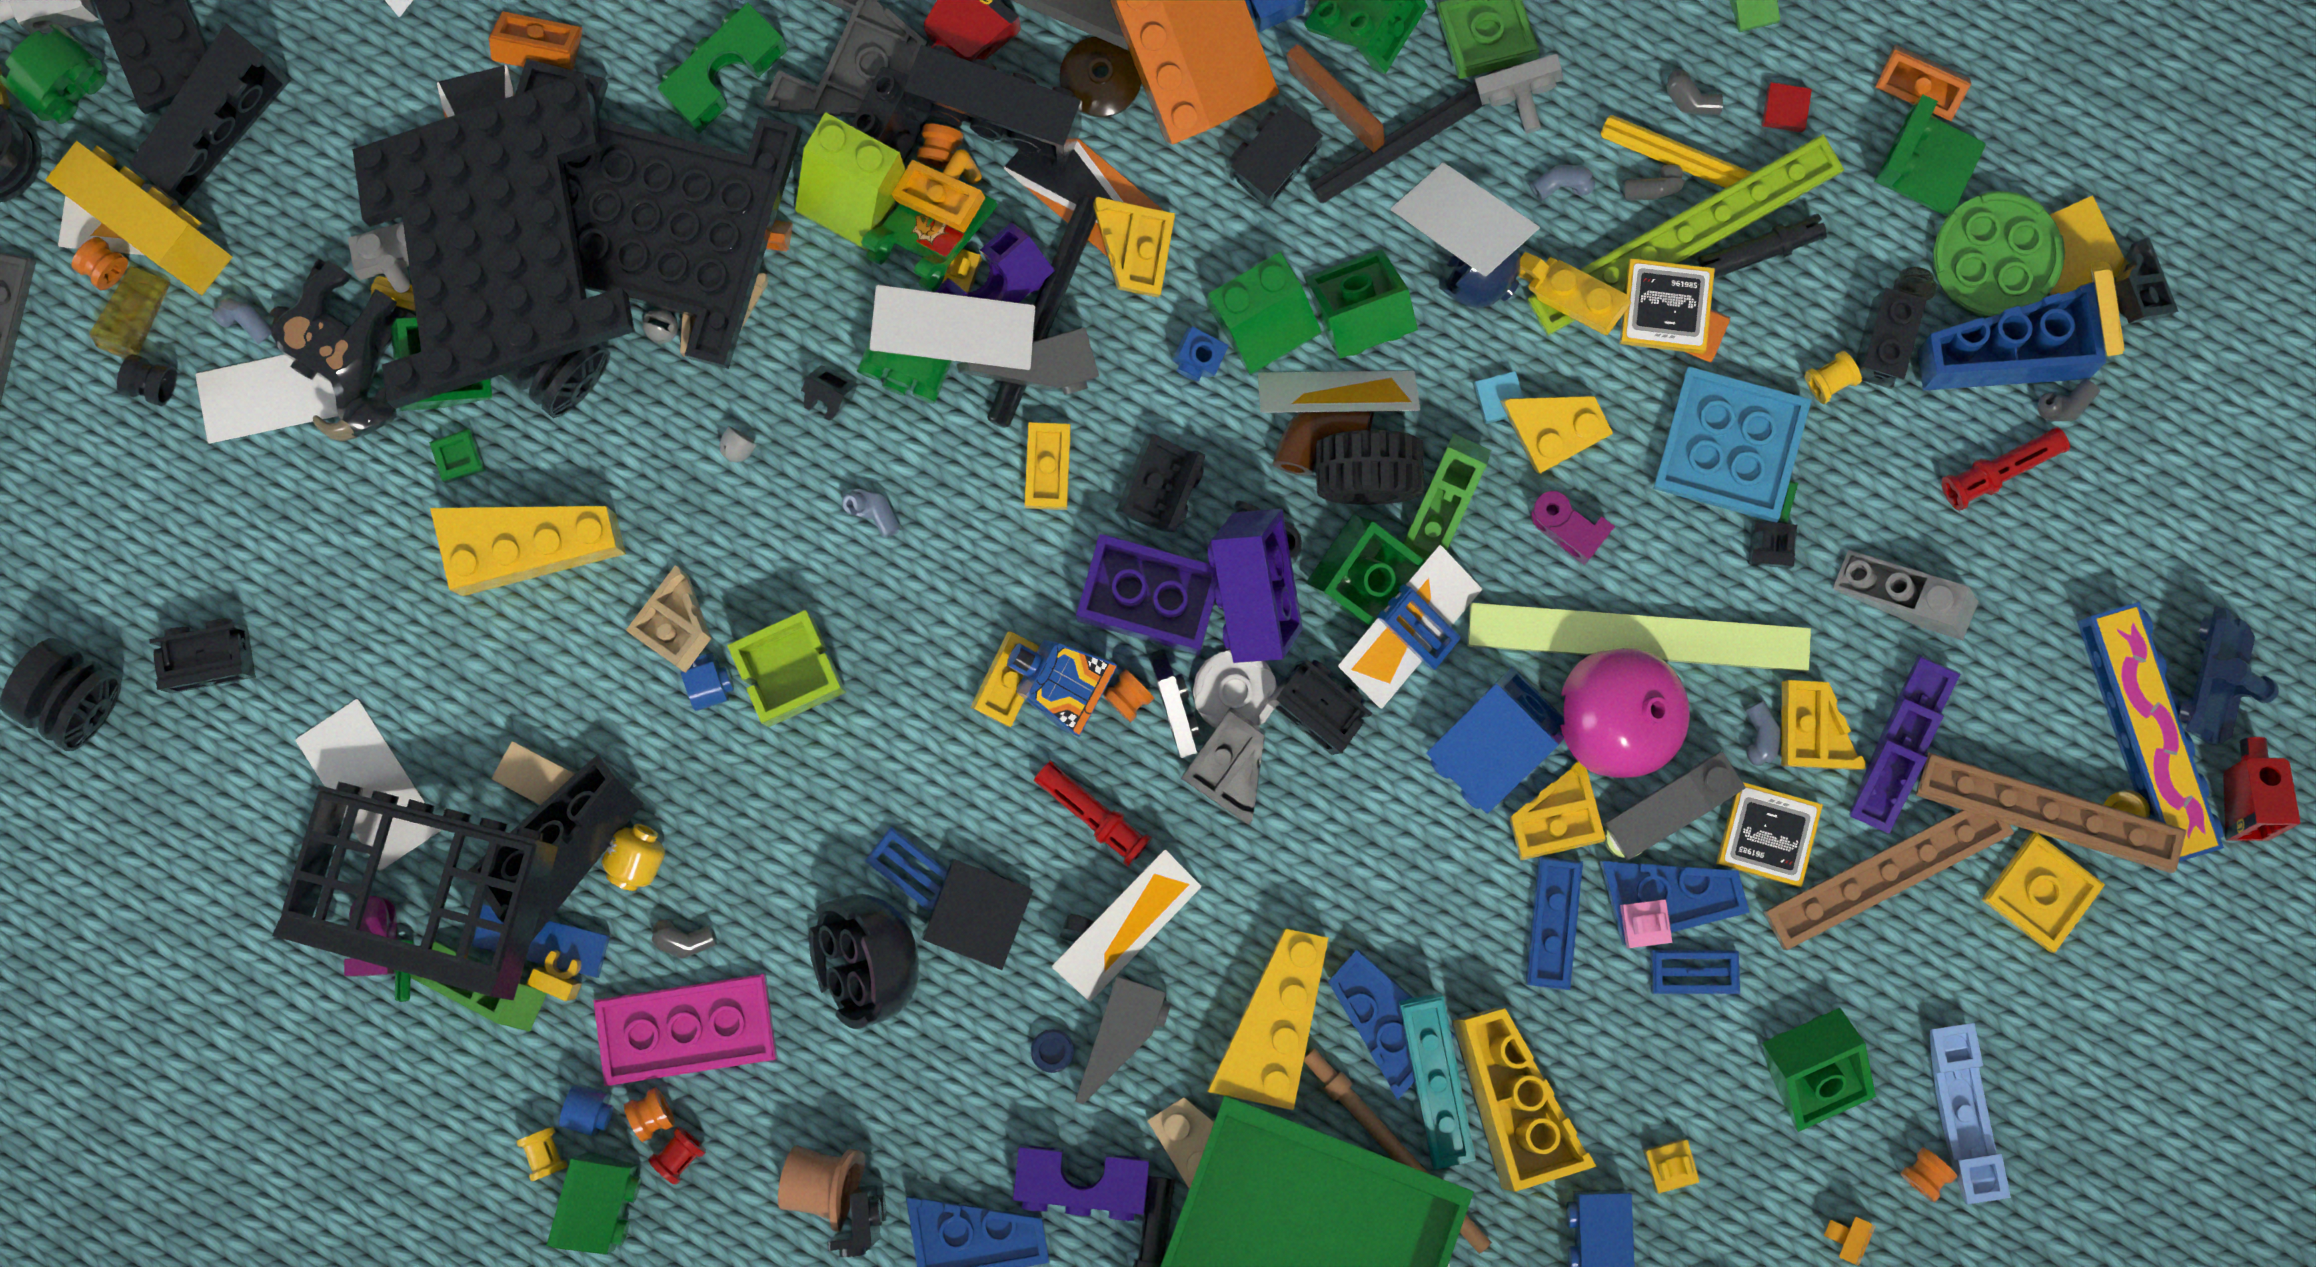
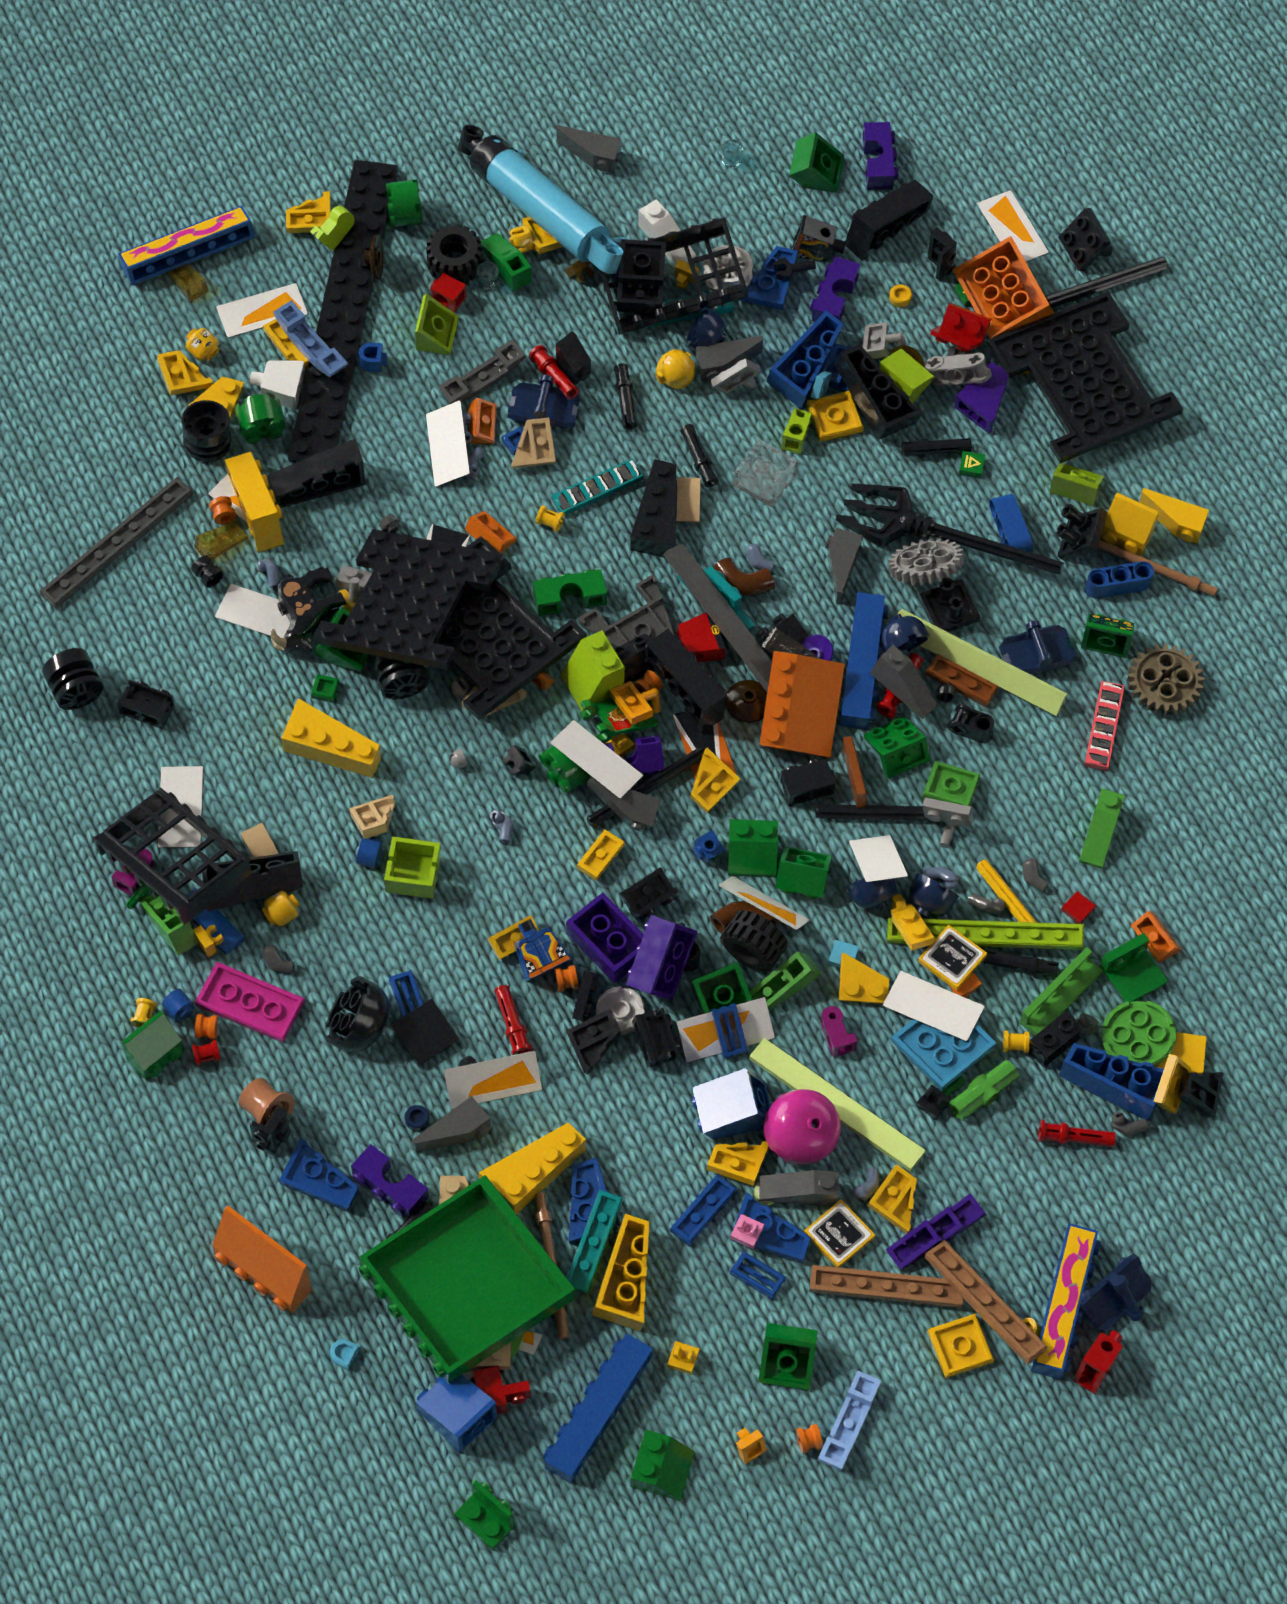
camera: 30 degrees right, 20 degrees down
(373, 125) = (390, 524): none -> dark grey plate
(1574, 227) = (931, 896): none -> dark blue cylinder
(1684, 398) = (933, 1005): none -> white sticker
(1835, 481) = (984, 1090): none -> bright green piece
(1849, 261) = (1061, 993): none -> bright green fence
(1908, 594) = (986, 1164): light grey slope -> none

